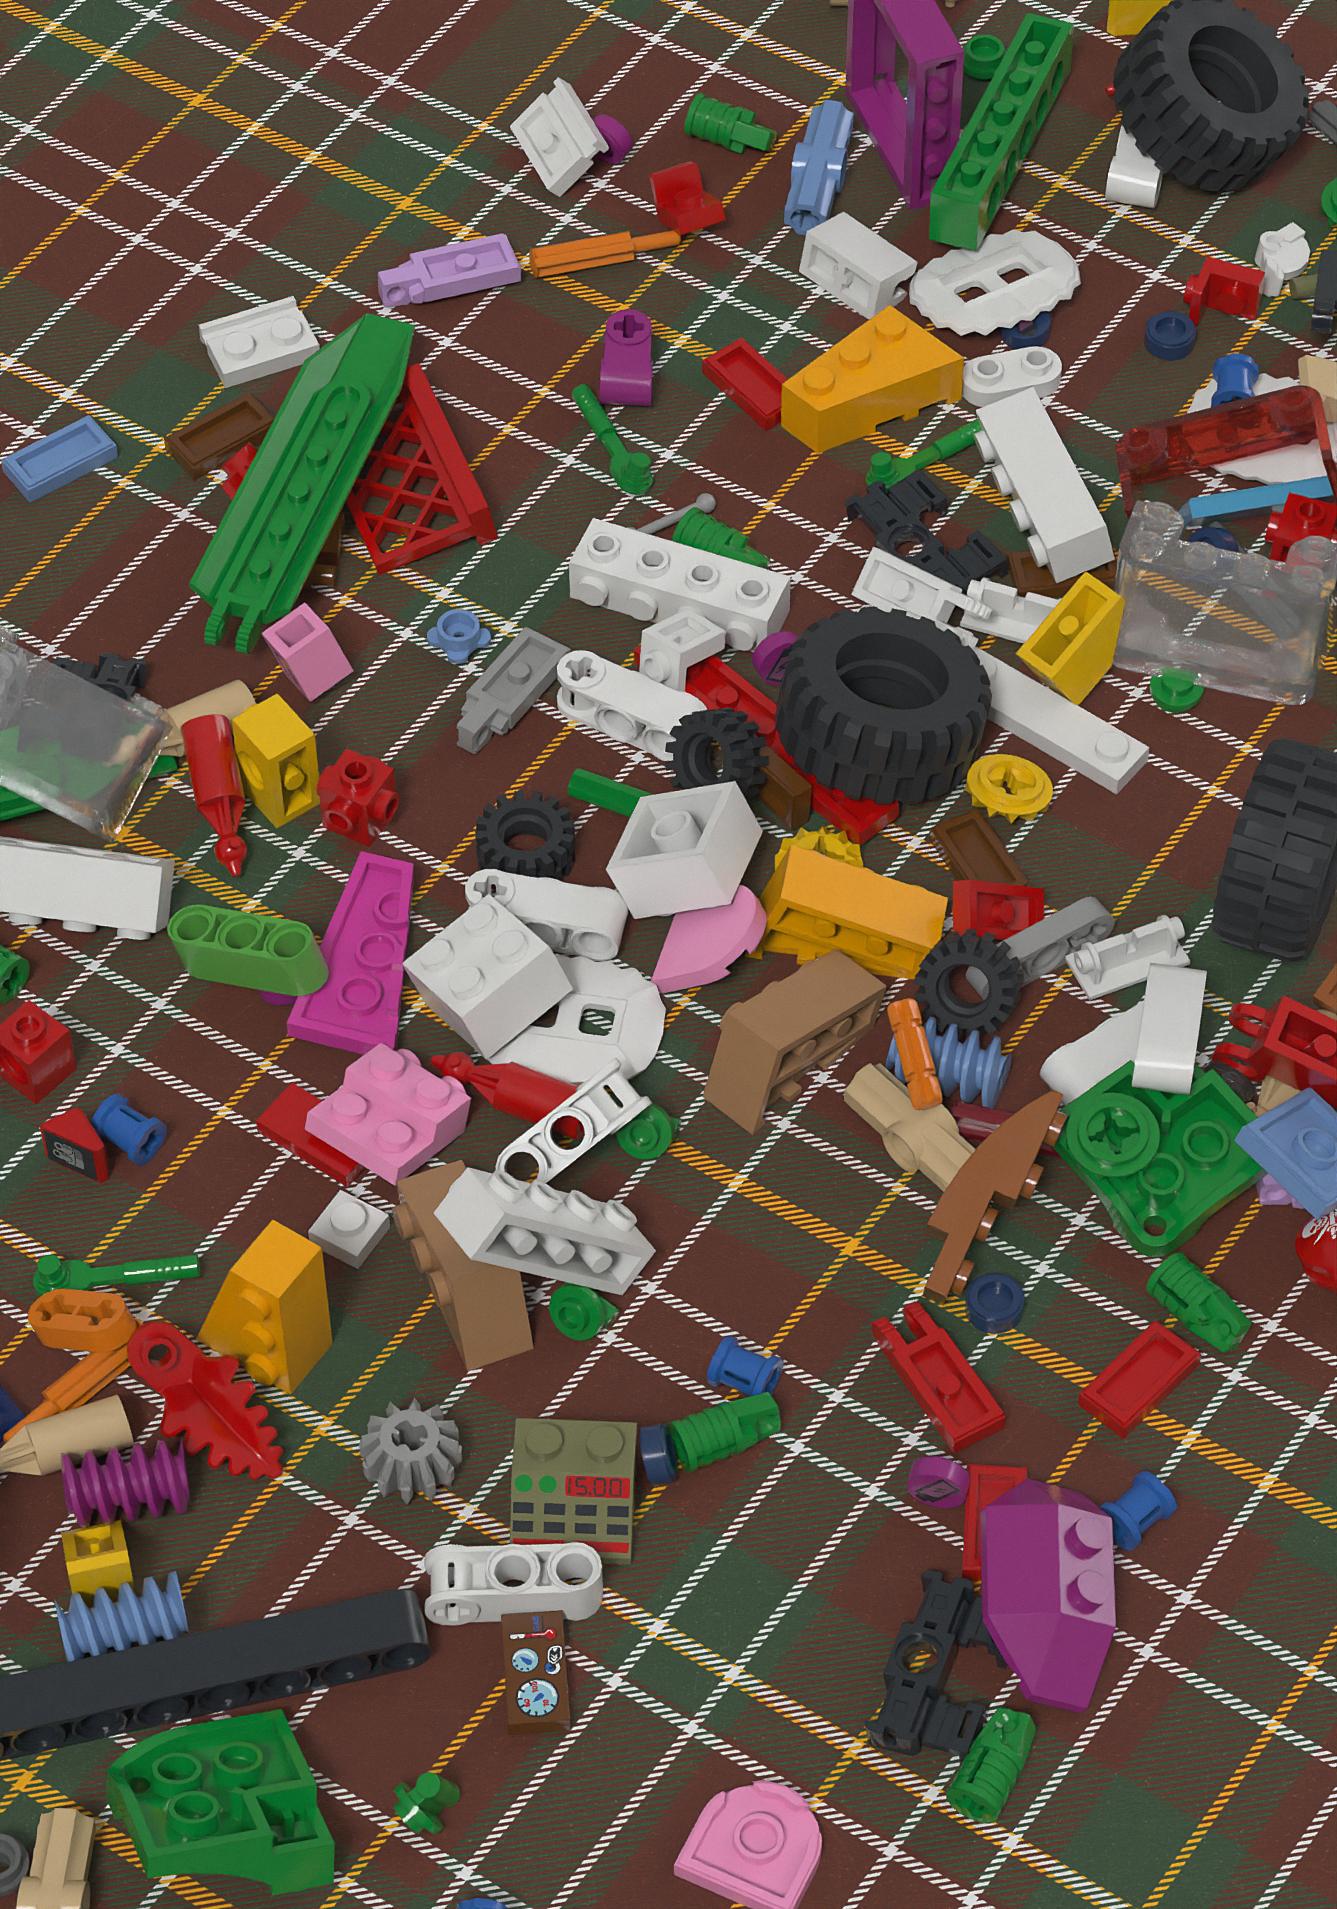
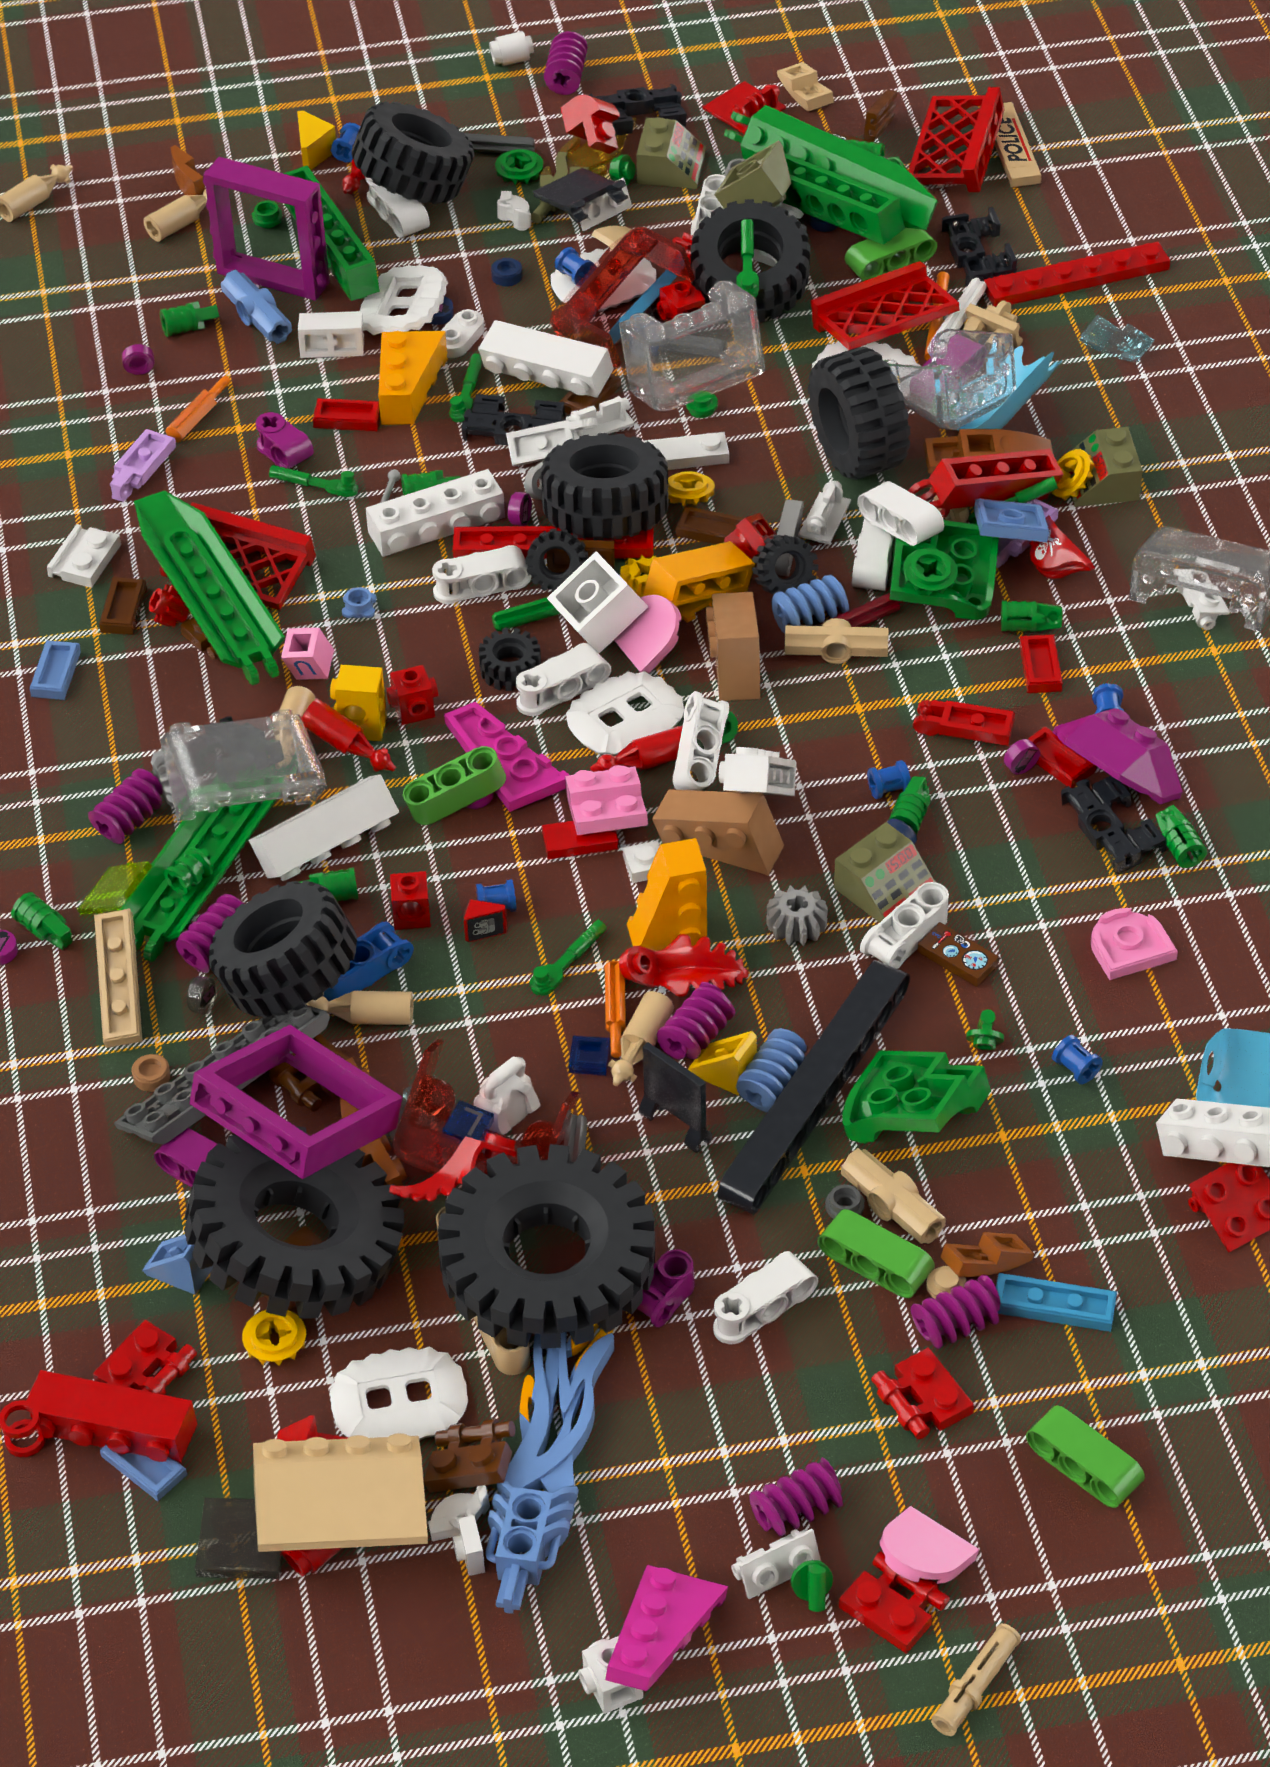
camera: 45 degrees left, 5 degrees down
(81, 1320) = (586, 980): orange beam -> none
(487, 976) = (579, 713): white brick -> none
(508, 688) = (414, 605): light grey hinge -> none
(558, 137) = (115, 372): white plate -> none
(580, 1311) = (789, 811): green plate -> none
(677, 644) = (478, 530): white bracket -> none
(682, 201) = (214, 363): red bracket -> none
(914, 1054) = (807, 602): orange axle -> none
(994, 1172) = (899, 624): dark orange slope -> none
(994, 1303) = (947, 681): dark blue tile -> none
(1076, 639) = (648, 403): yellow slope -> none
(1224, 288) = (511, 234): red bracket -> none

